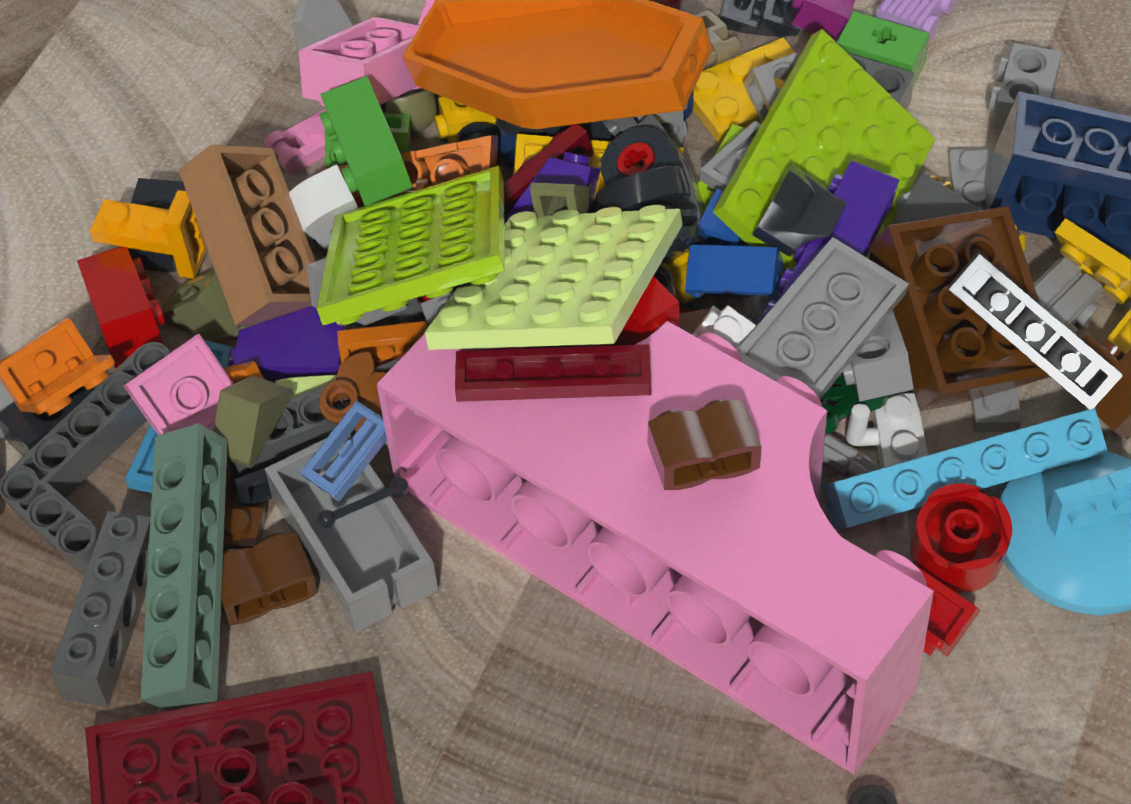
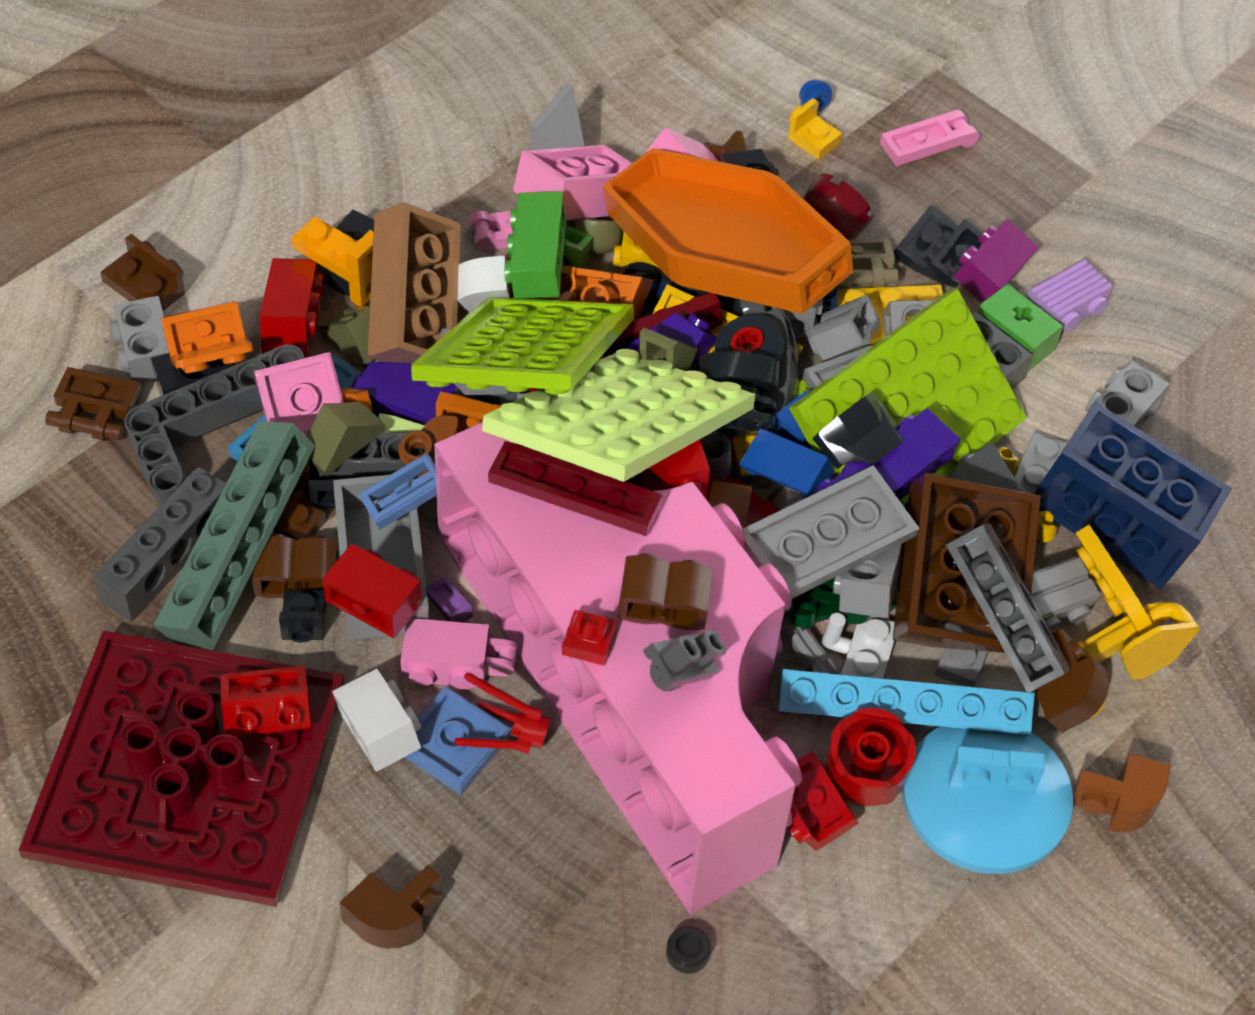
camera: 15 degrees right, 0 degrees up
(294, 626) = (302, 615): none -> black bracket
(305, 731) = (265, 701): none -> red bracket
(370, 567) = (373, 590): none -> red brick
(398, 488) = (428, 535): black hinge -> none
(434, 702) = (377, 719): none -> white brick
(446, 551) = (449, 601): none -> medium lavender piece
(477, 603) = (448, 650): none -> bright pink brick
(519, 693) = (444, 721): none -> medium blue tile
(596, 648) = (528, 726): none -> red plant
(646, 522) = (589, 637): none -> red tile
(717, 114) = (844, 328): none -> light grey brick
(726, 324) = (747, 506): white brick -> none
(761, 506) = (684, 659): none -> dark grey hips

